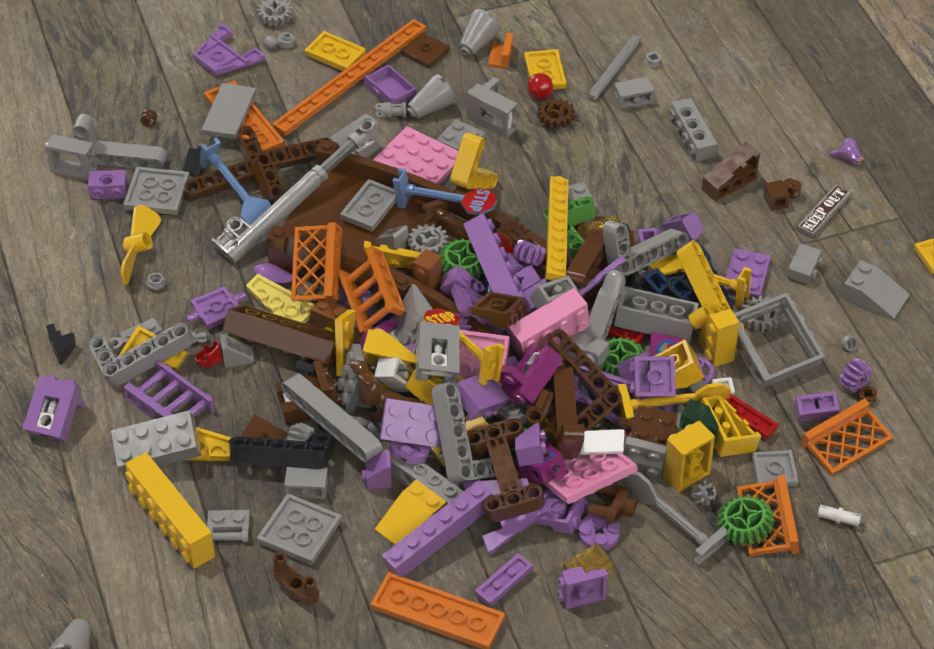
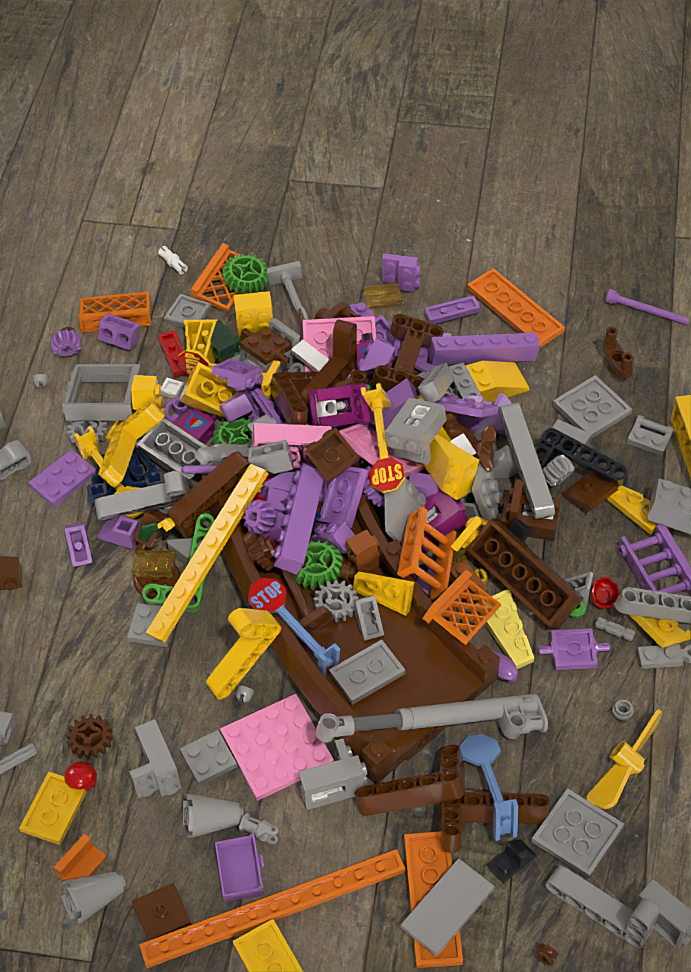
camera: 150 degrees left, 5 degrees up
(107, 184) = (635, 875): medium lavender brick -> none

